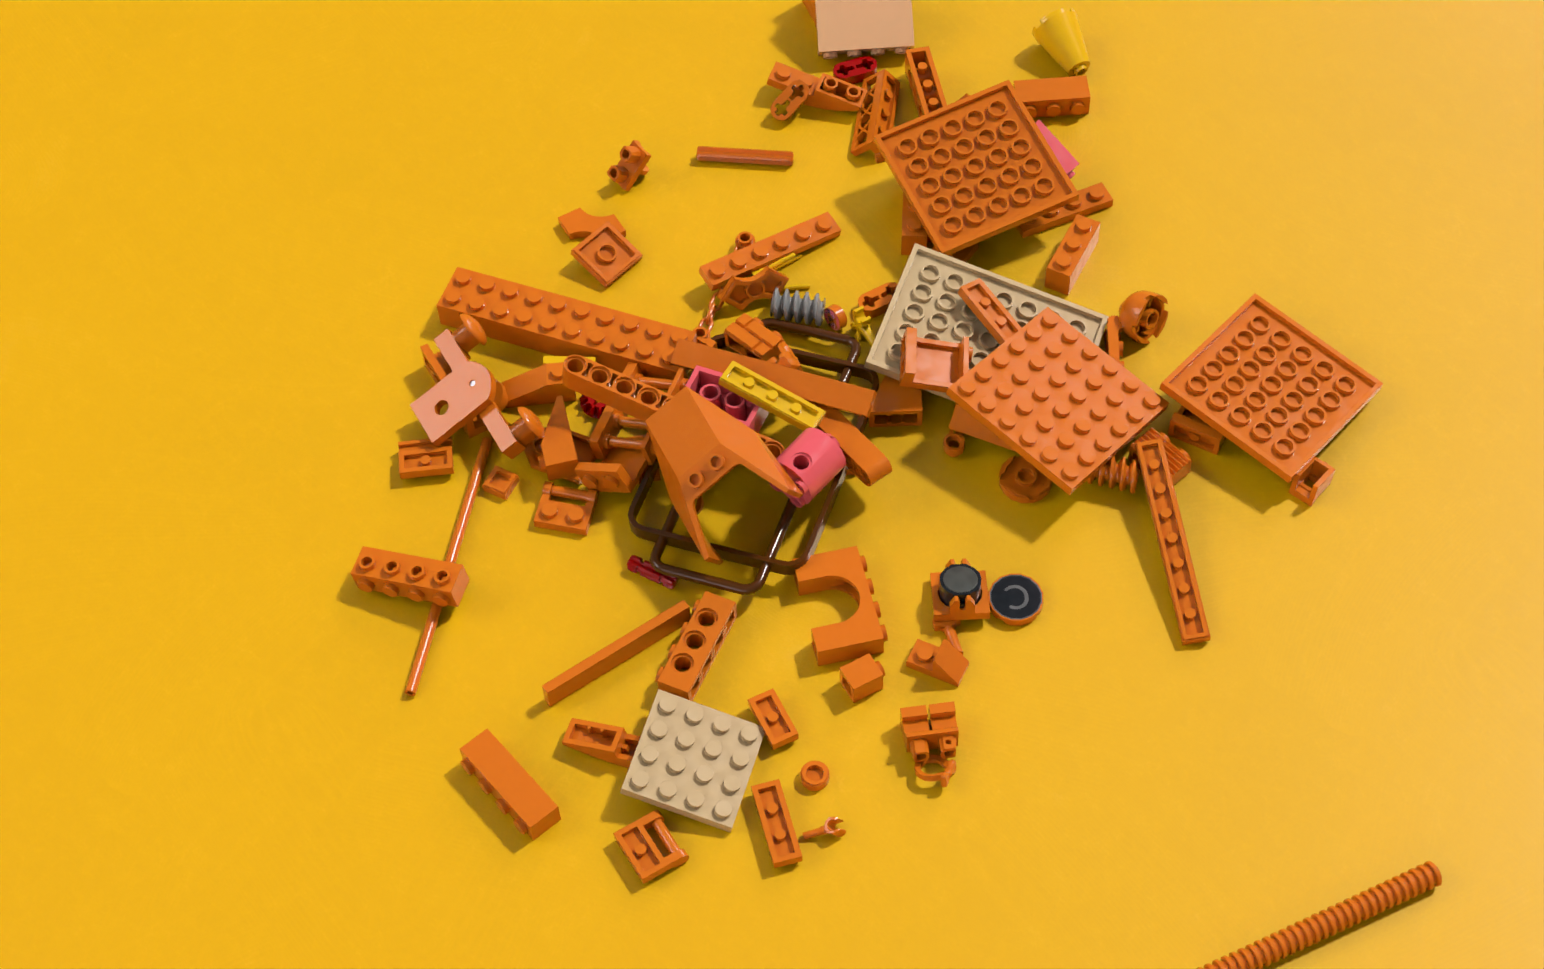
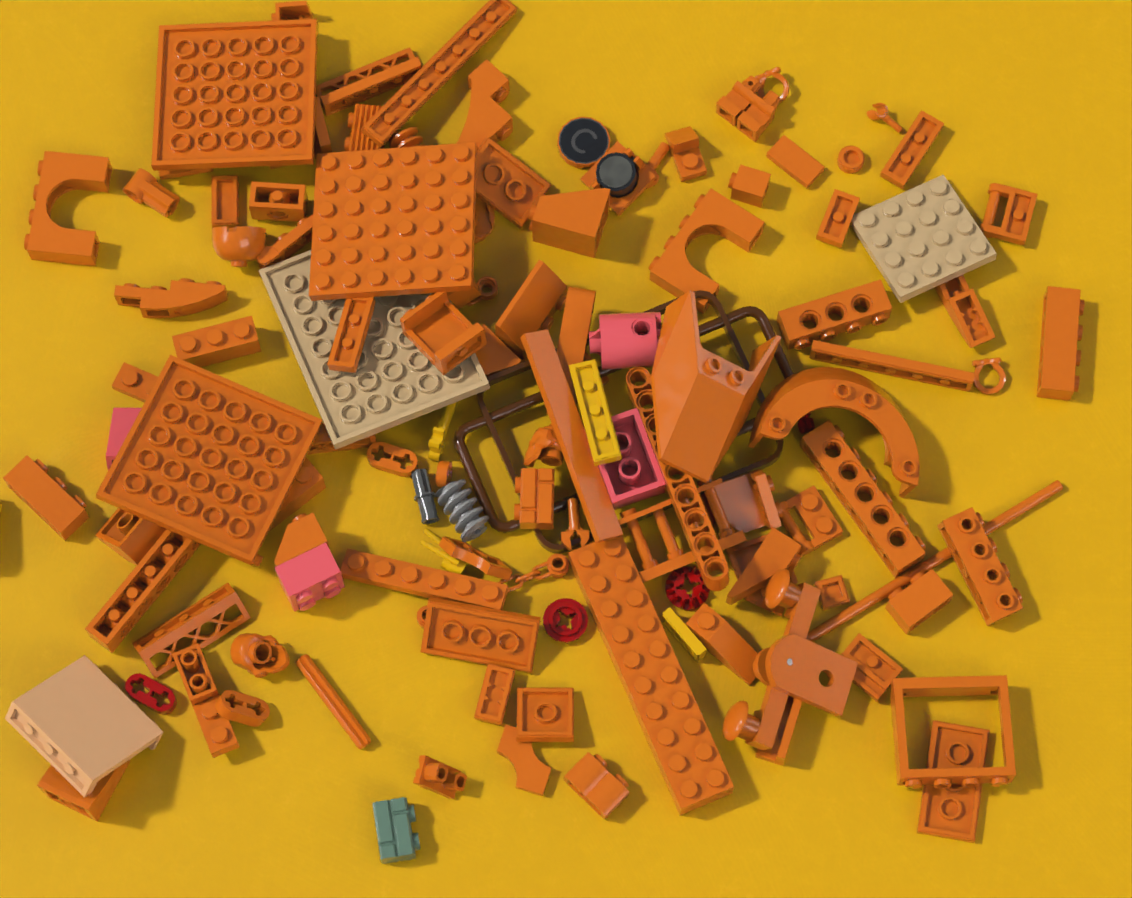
camera: 135 degrees left, 15 degrees up
(298, 449) = (955, 809): none -> orange tile
(351, 490) = (951, 687): none -> orange window
(432, 523) = (918, 601): none -> orange brick
(529, 247) = (597, 785): none -> orange brick
(530, 540) = (895, 558): none -> orange brick
(545, 730) = (994, 362): none -> orange piece
(620, 588) = (847, 390): none -> orange windscreen
(623, 125) = (395, 831): none -> sand green brick
(650, 306) = (568, 608): none -> red gear
(651, 239) = (494, 694): none -> orange plate
(697, 252) = (480, 634): none -> orange tile
(818, 131) = (259, 654): none -> orange head
(832, 297) = (424, 496): none -> dark grey axle
(838, 184) = (310, 577): none -> coral brick
(852, 733) = (795, 161): none -> orange tile
(865, 197) = (300, 537): none -> orange slope
(904, 448) = (531, 307): none -> orange slope
(948, 523) = (571, 220): none -> orange slope
(1028, 513) = (507, 183): none -> orange tile
(1101, 544) = (484, 114): none -> orange arch
(1134, 252) = (182, 299): none -> orange slope
(1154, 357) = (278, 201): none -> orange brick
(1183, 336) = (225, 201): none -> orange tile
(1202, 489) = (368, 85): none -> orange fence
(1234, 297) = (146, 189): none -> orange piece
(1261, 216) = (59, 175): none -> orange arch

